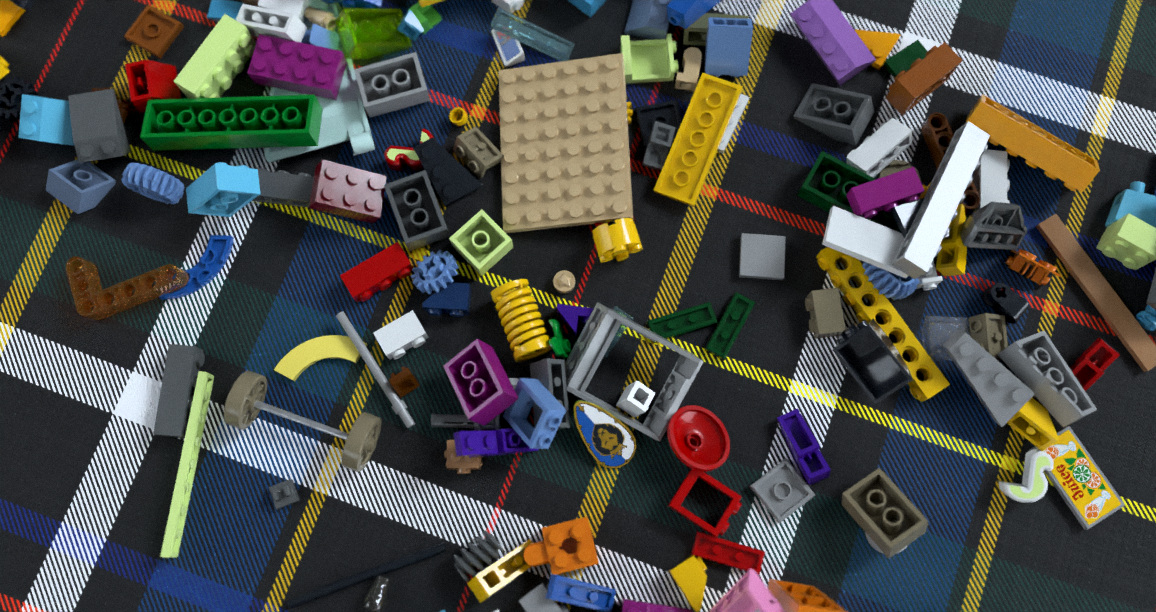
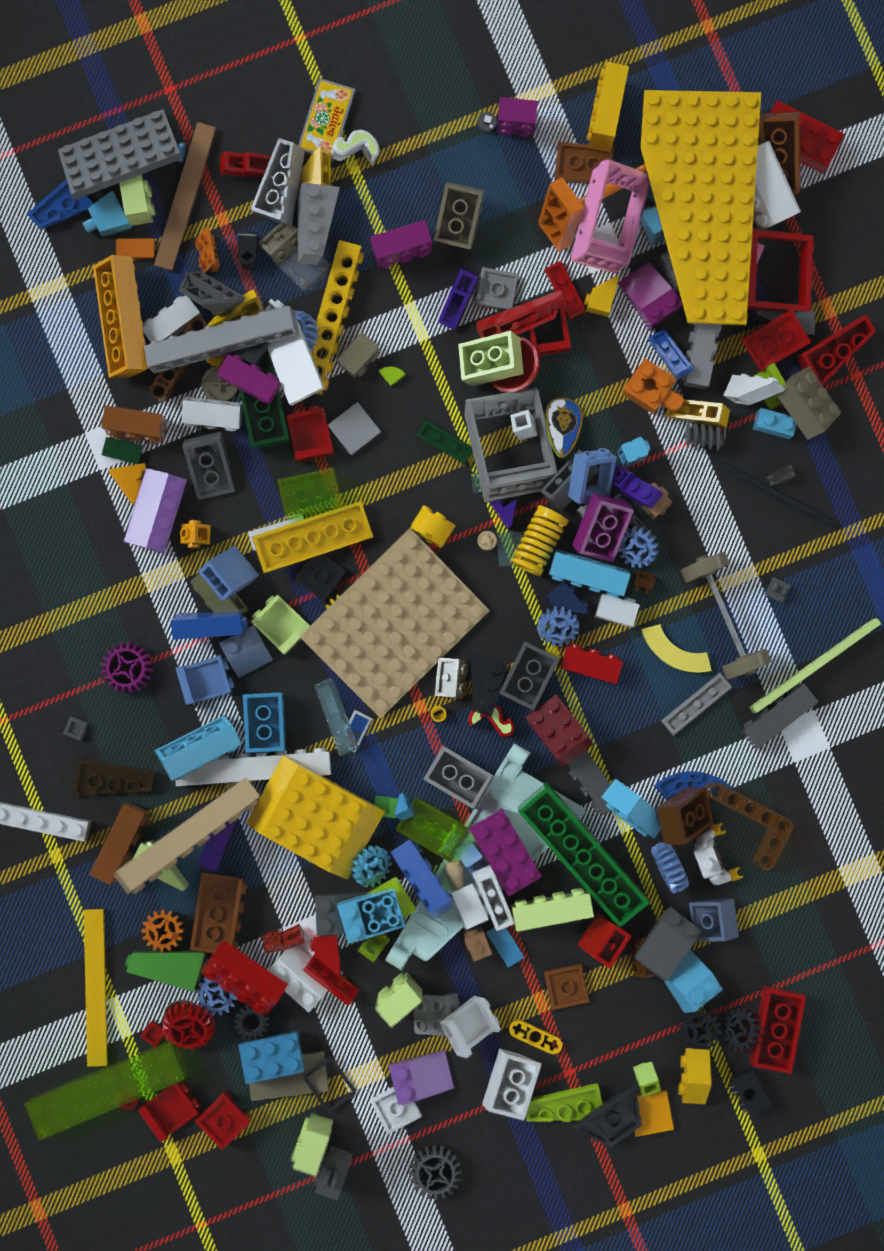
camera: 140 degrees left, 10 degrees up
(21, 24) = (647, 1079): none -> lime brick
(126, 222) = (710, 859): none -> white torso
(175, 226) = (684, 815): none -> reddish brown brick
(261, 331) = (696, 704): none -> light grey tile
(399, 406) = (661, 570): light grey bar -> none
(436, 401) = (634, 553): none -> medium blue gear
(452, 335) = (590, 573): none -> medium azure slope
(481, 242) = (511, 614): yellowish green brick -> none
(522, 473) = (633, 452): none -> medium azure brick
(545, 296) = (507, 545): none -> clear light blue piece
(558, 343) = (531, 502): green plate -> none
(658, 145) = (339, 561): dark grey slope -> none
(691, 64) = (263, 587): tan leg -> none
(722, 420) = (490, 358): none -> yellowish green brick
(729, 326) = (420, 409): dark green tile -> none
(737, 168) = (310, 493): none -> clear neon green brick
(737, 481) = (521, 317): none -> red wedge
(779, 55) = (195, 534): none -> light orange brick
(782, 328) = (391, 374): none -> lime tile
(789, 215) = (309, 434): none -> red panel
(872, 359) = (366, 299): black piece -> none
(899, 435) = (401, 244): none -> magenta brick
(1083, 211) = (136, 248): none -> orange tile

